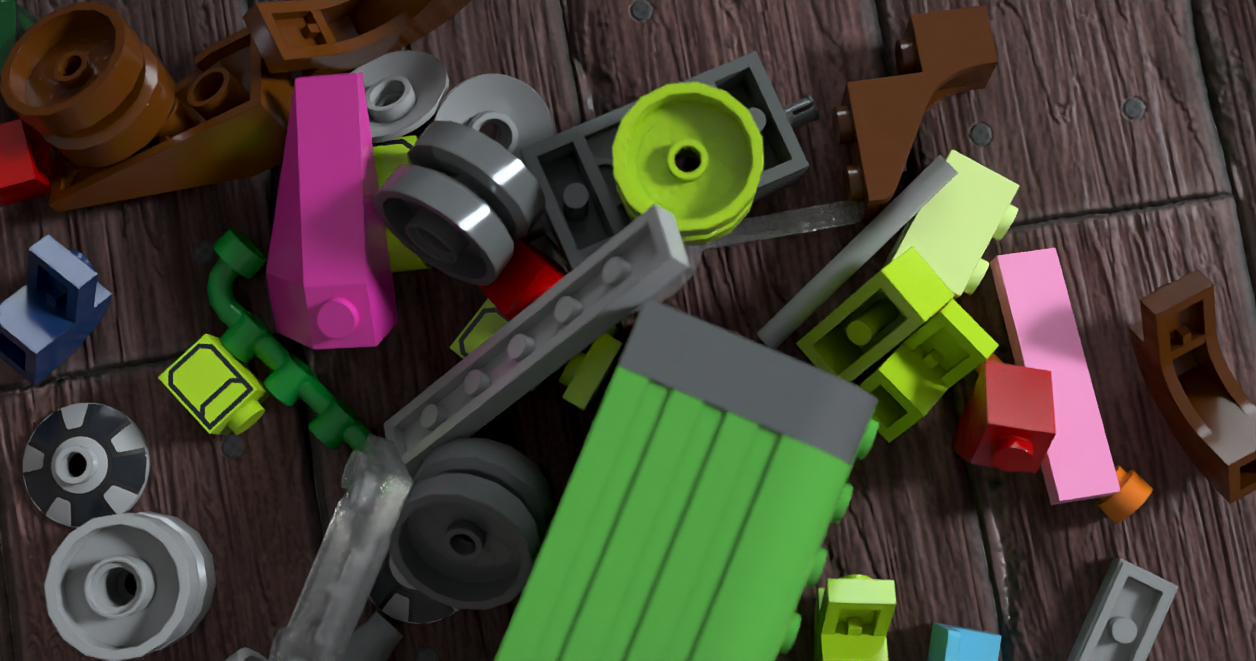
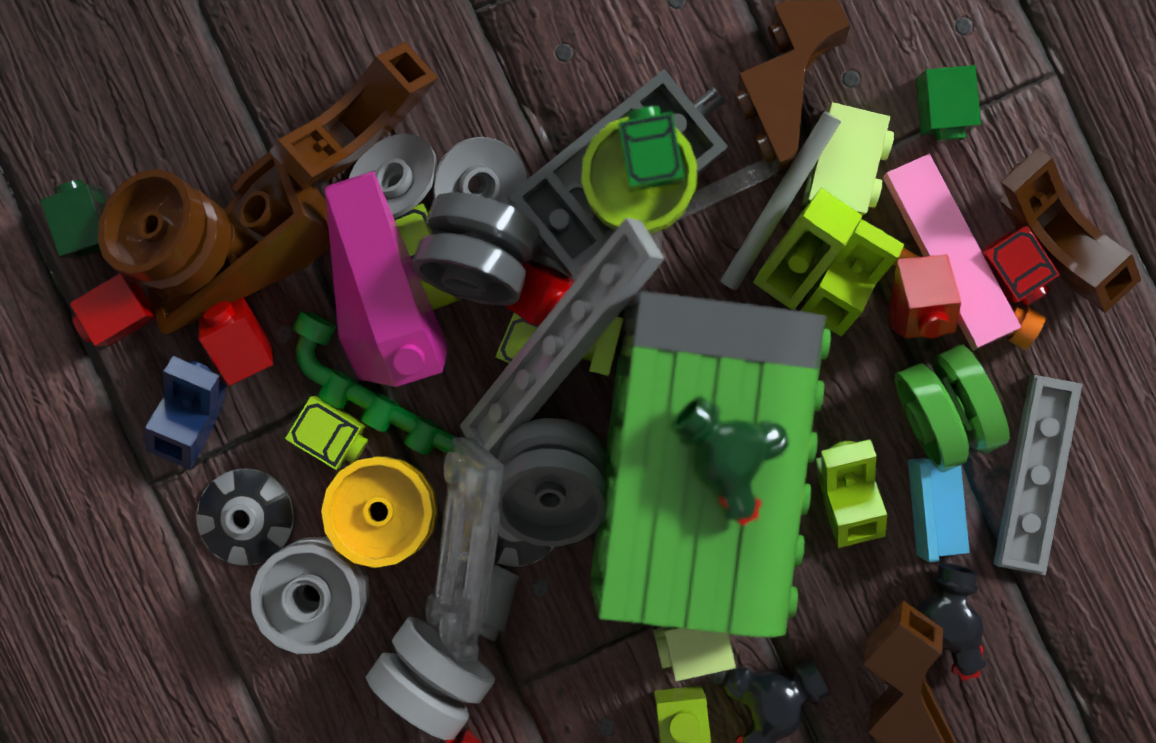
camera: 15 degrees left, 5 degrees up
(135, 240) = (235, 340): none -> red brick
(210, 496) = (349, 518): none -> yellow wheel
(704, 542) = (729, 454): none -> dark green animal
(709, 126) = (650, 149): none -> green brick
(1009, 570) = (952, 408): none -> bright green wheel
(1094, 190) = (948, 102): none -> green brick
(1137, 415) = (1020, 266): none -> red brick

